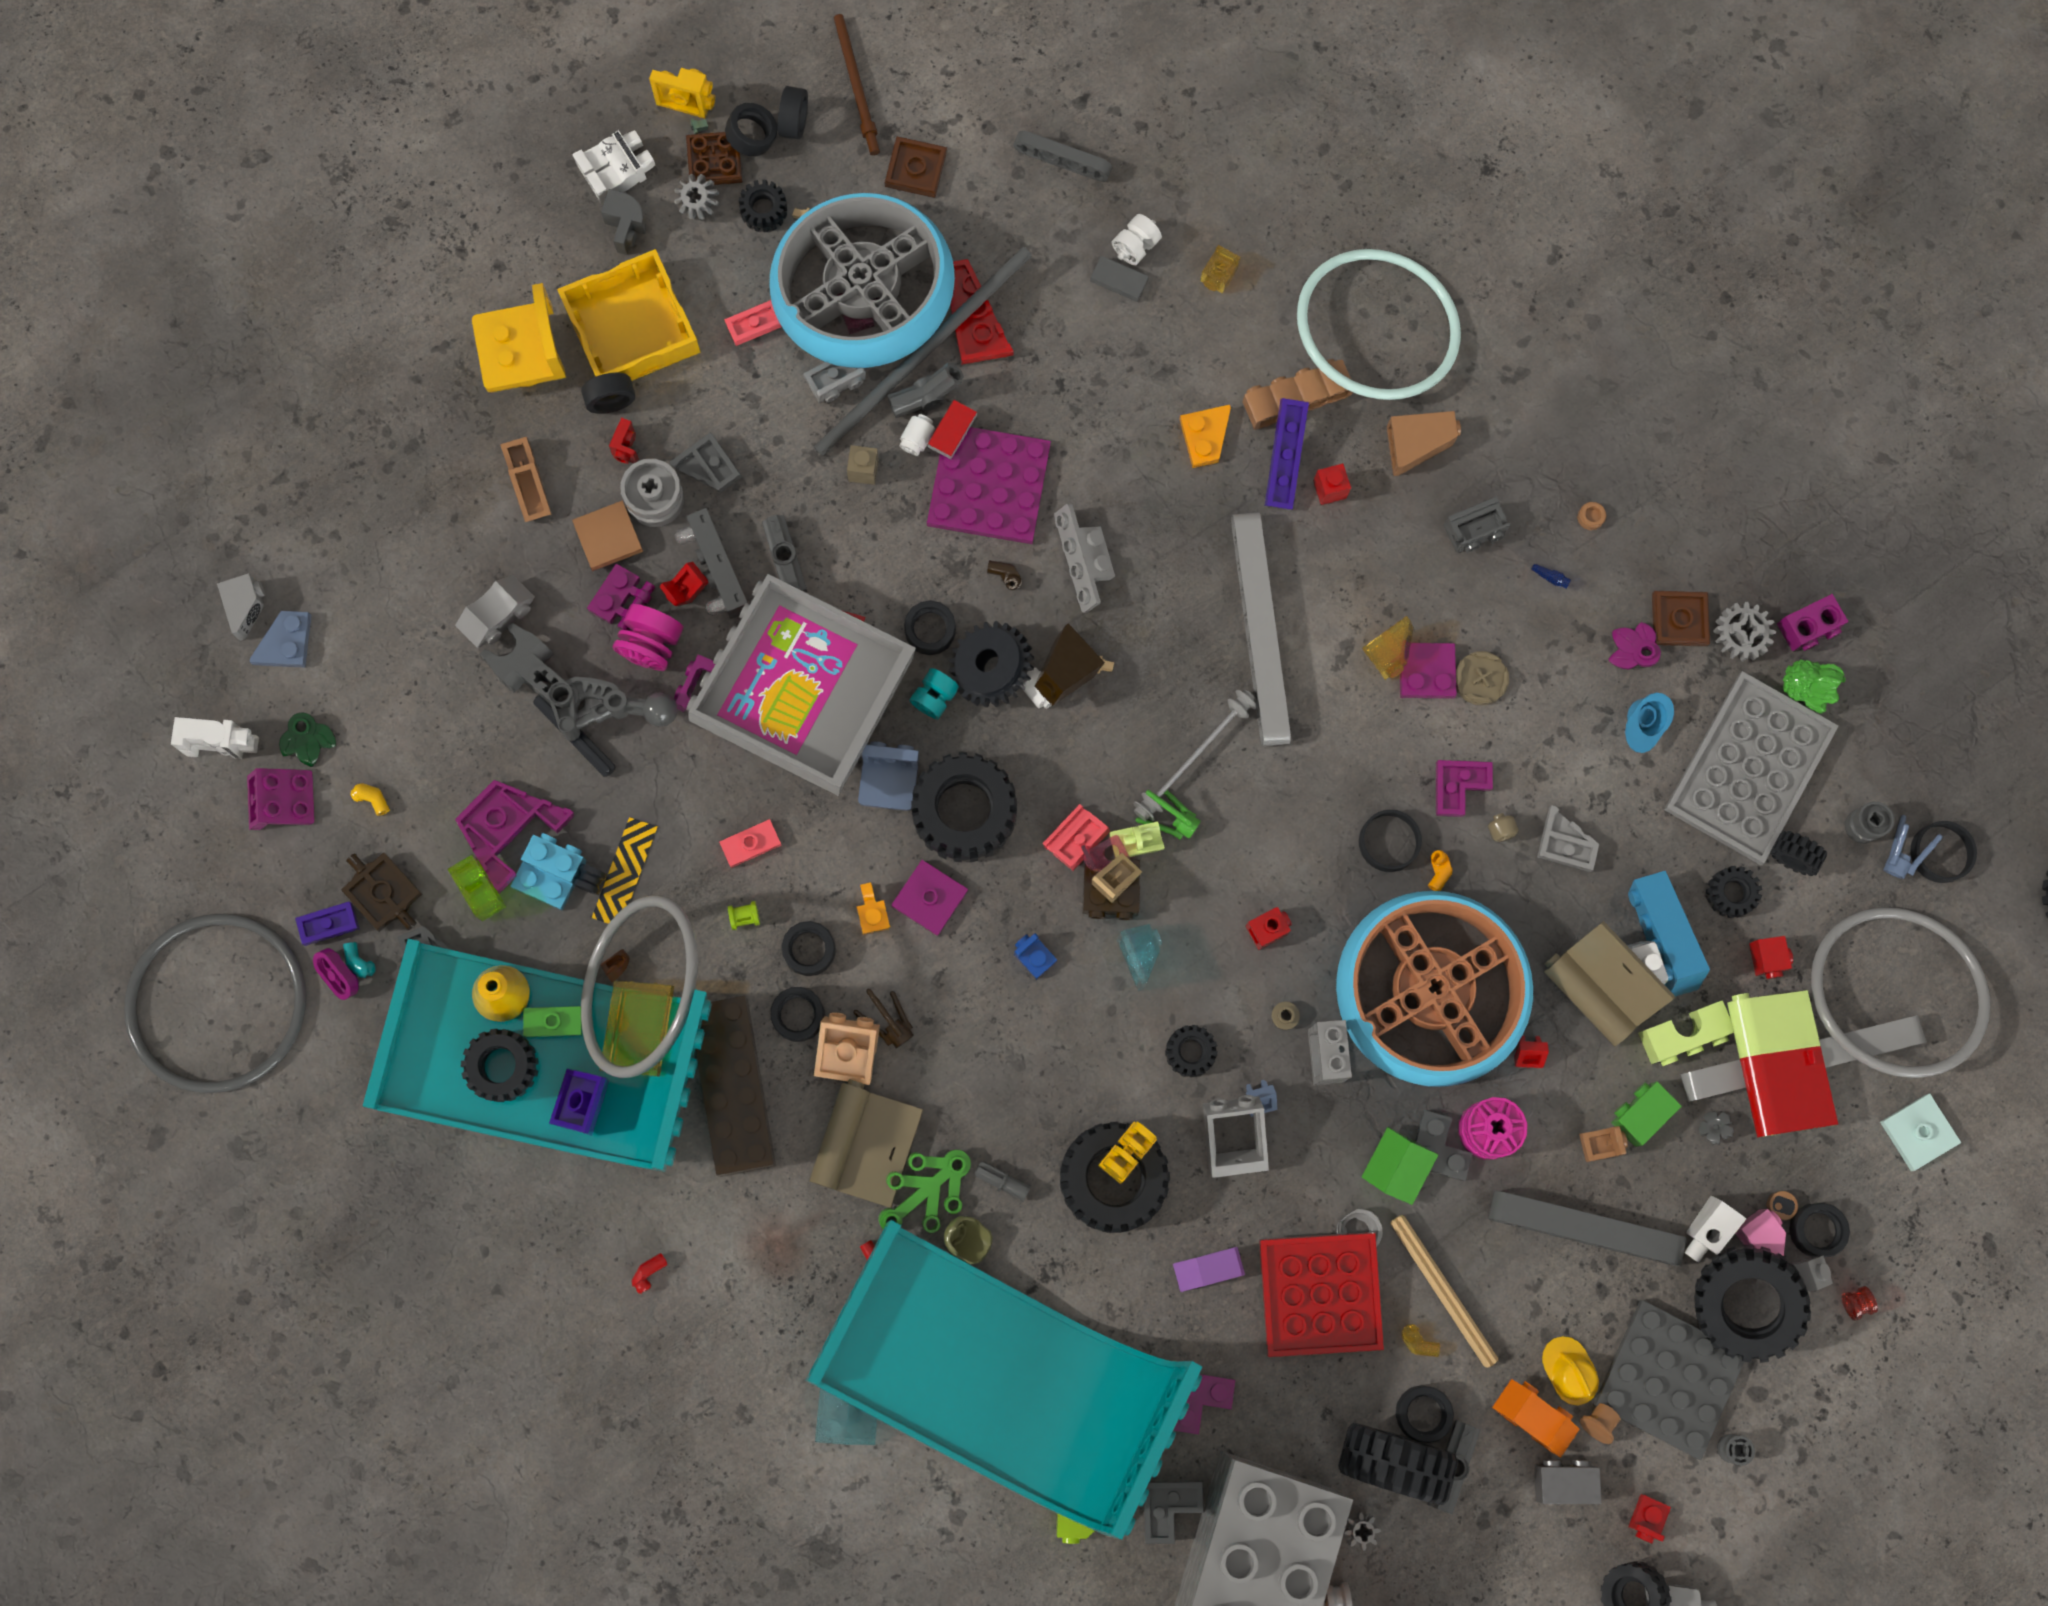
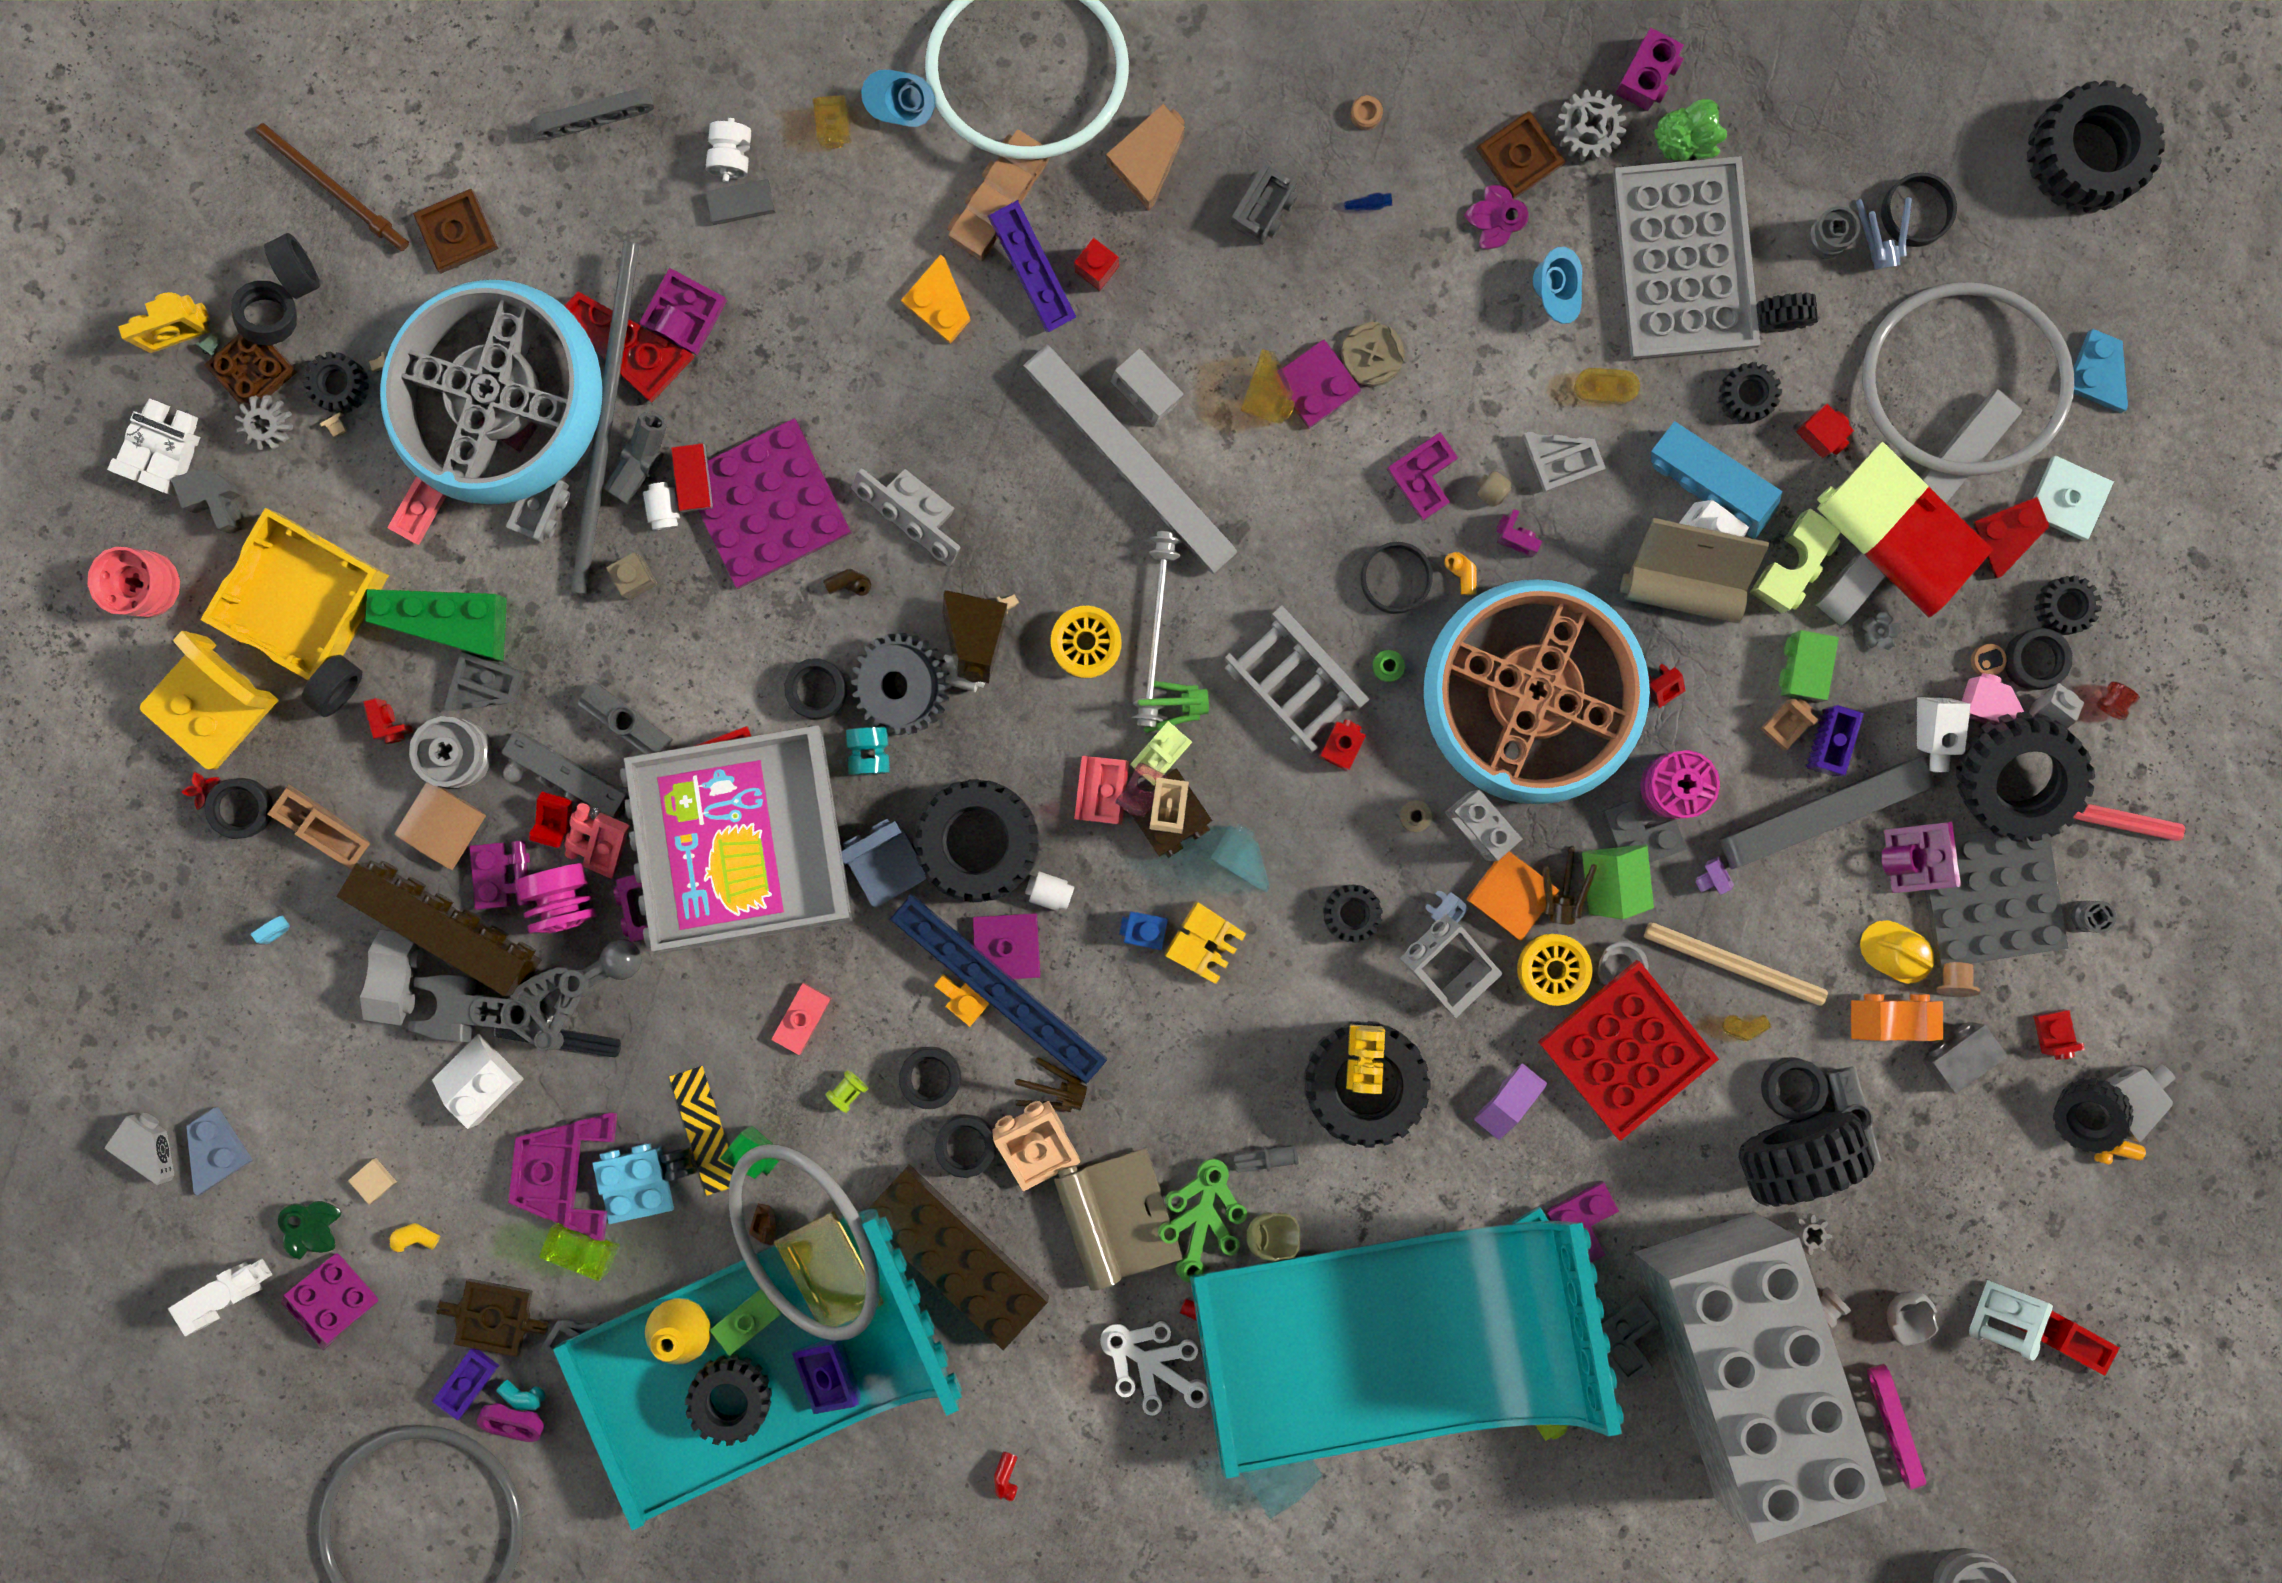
camera: 30 degrees left, 10 degrees up
(374, 739) = (372, 1181): none -> tan tile
(440, 523) = (271, 930): none -> medium azure tile
(468, 401) = (200, 789): none -> red plant
(483, 408) = (216, 821): none -> black tyre
(496, 724) = (475, 1082): none -> white slope
(529, 223) = (117, 579): none -> coral wheel
(554, 598) = (439, 927): none -> dark brown brick
(649, 918) = (743, 1143): none -> green slope
(710, 625) = (605, 842): none -> coral plate
(718, 404) = (450, 618): none -> green wedge
(740, 232) = (334, 424): none -> tan piece
(811, 1267) = (1150, 1363): none -> white plant
(903, 922) = (998, 988): none -> dark blue tile
(988, 880) = (1049, 891): none -> white brick
(1027, 320) = (683, 311): none -> magenta plate
(1057, 991) = (1190, 949): none -> yellow legs
(1143, 705) = (1100, 617): none -> yellow wheel
(1276, 284) = (898, 98): none -> dark azure piece
(1290, 843) = (1305, 649): none -> light grey fence
(1307, 589) = (1146, 387): none -> light grey hinge
(1316, 1121) = (1511, 895): none -> orange slope
(1333, 1200) = (1583, 969): none -> yellow wheel
(1335, 903) = (1379, 670): none -> bright green plate
(1346, 1156) = (1563, 908): none -> dark brown plant
(1474, 1215) = (1716, 876): none -> medium lavender tile
(1496, 876) = (1520, 540): none -> magenta bracket
(1628, 1179) = (1834, 740): none -> dark purple brick
(1634, 813) = (1605, 385): none -> clear yellow plate
(1634, 1310) = (1921, 858): none -> magenta plate
(1808, 1398) = (2132, 822): none -> coral axle
(1860, 1125) = (2011, 533): none -> red wing
(1884, 1207) = (2085, 599): none -> black tyre
(2003, 1059) = (2101, 371): none -> dark azure wing

